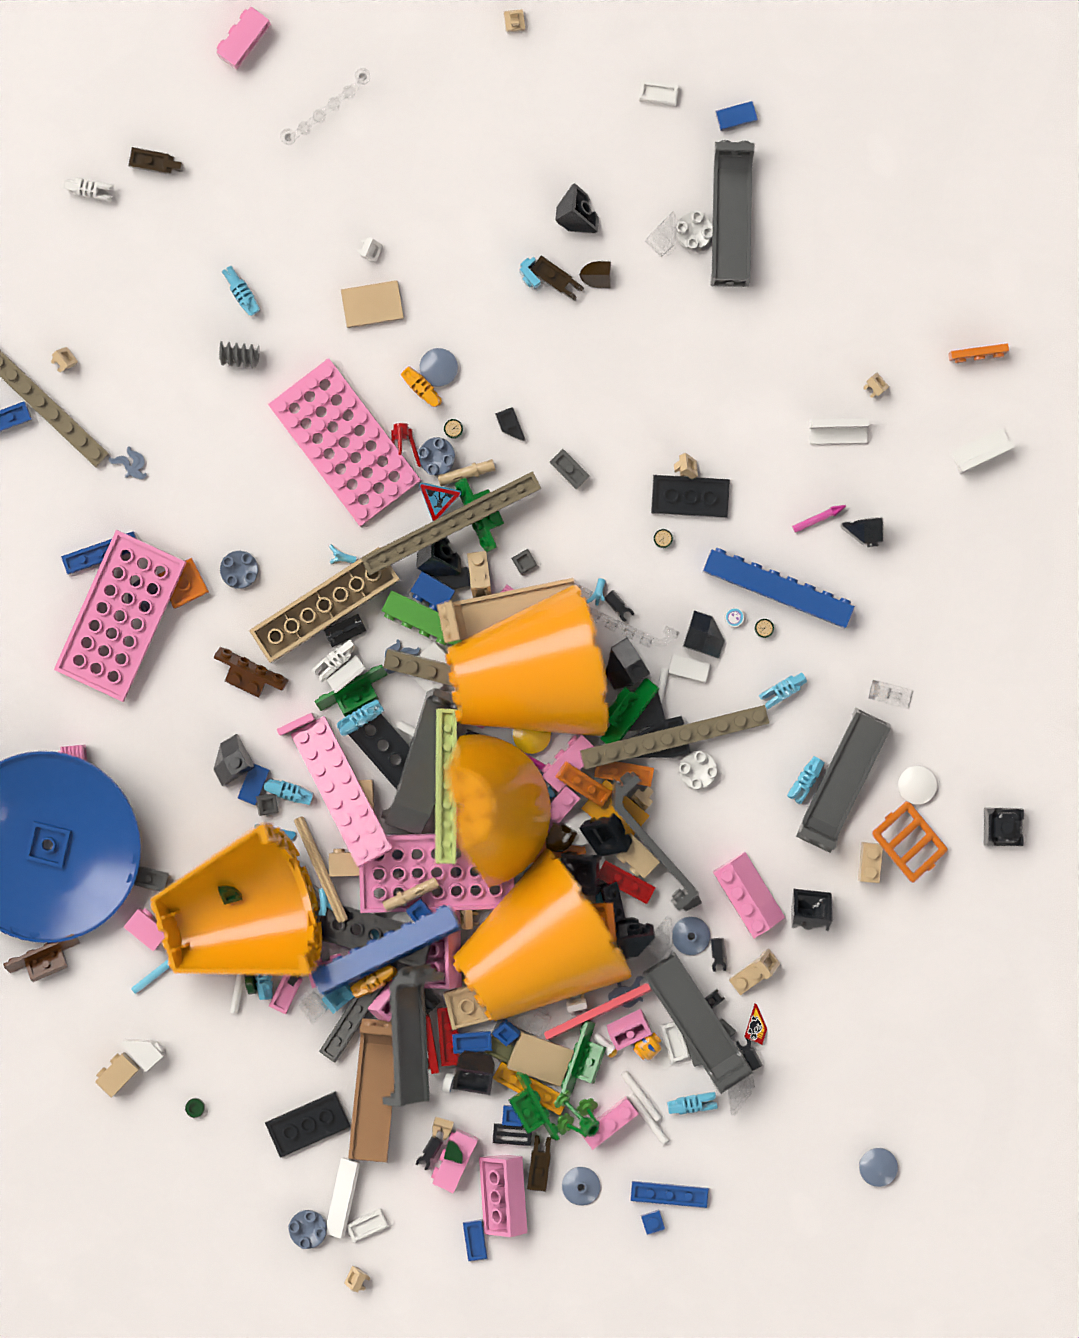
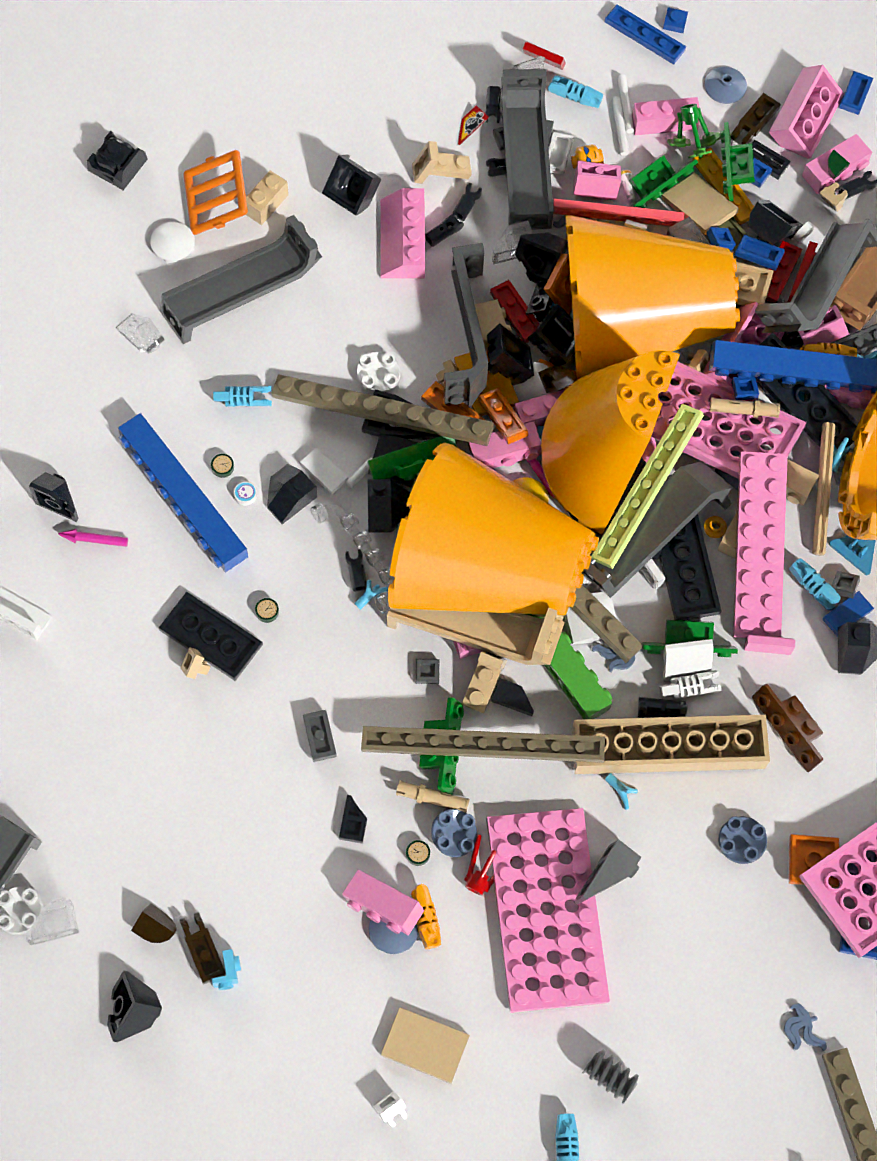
camera: 160 degrees left, 20 degrees down
(314, 493) = (613, 867): none -> dark grey slope
(360, 717) = (699, 607): medium azure hinge -> none
(378, 798) = (715, 533): none -> light orange plate
(432, 591) = (544, 693): blue brick -> none
(438, 499) = (480, 785): piece -> none
(439, 559) = (517, 717): black slope -> none
(454, 376) = (382, 903): none -> bright pink brick
(691, 925) = (472, 235): sand blue dish -> none
(722, 916) = (441, 231): none -> black bar
(735, 1121) = (550, 58): none -> red tile
(806, 780) = (277, 303): medium azure hinge -> none

